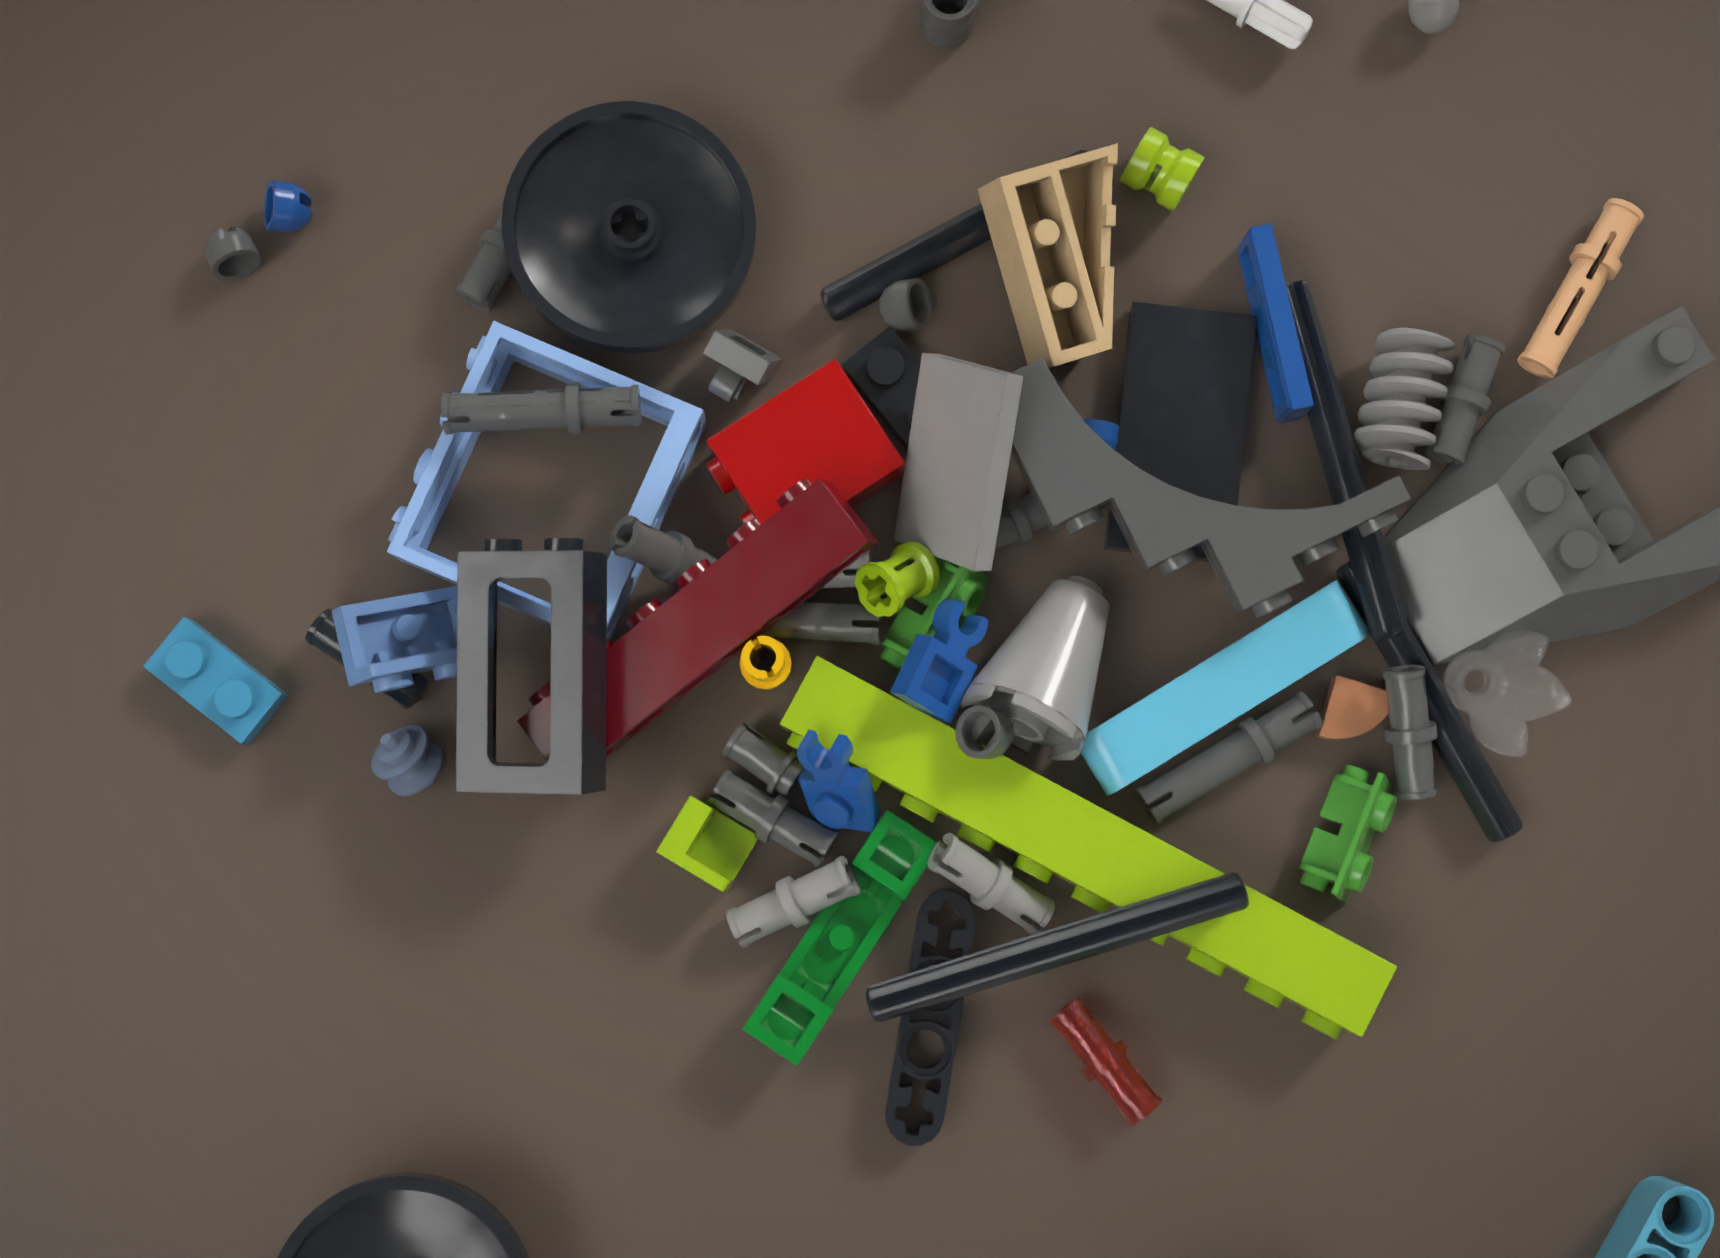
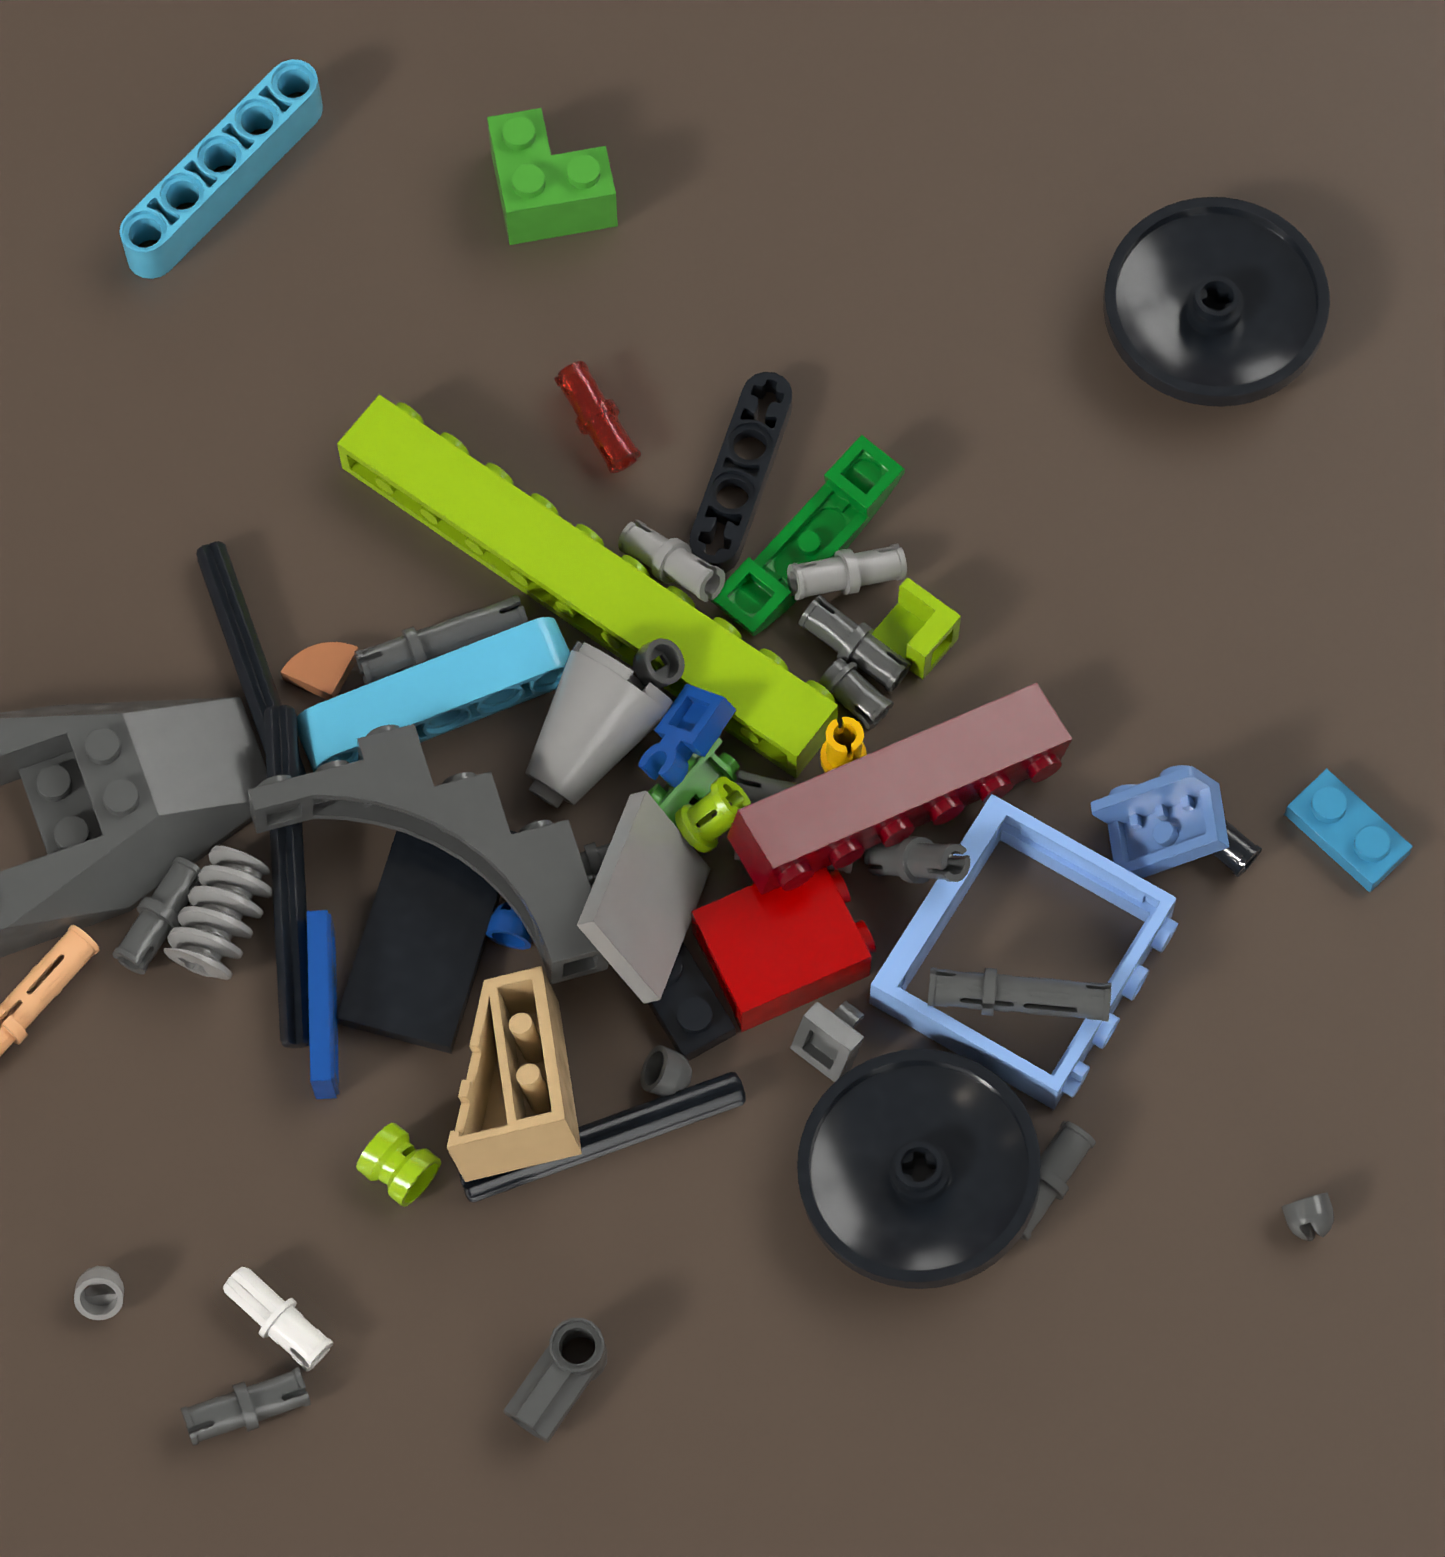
camera: 170 degrees left, 15 degrees down
(286, 207) = (1255, 1251): blue hinge -> none
(407, 760) = (1176, 731): sand blue wheel -> none
(577, 668) = (1002, 824): piece -> none
(833, 790) = (796, 648): blue plate -> none
(1057, 947) = (625, 493): black axle -> none
(1344, 857) = (362, 546): bright green hinge -> none
(1410, 732) = (278, 635): dark grey pin -> none
(1512, 690) = (175, 666): clear plate -> none

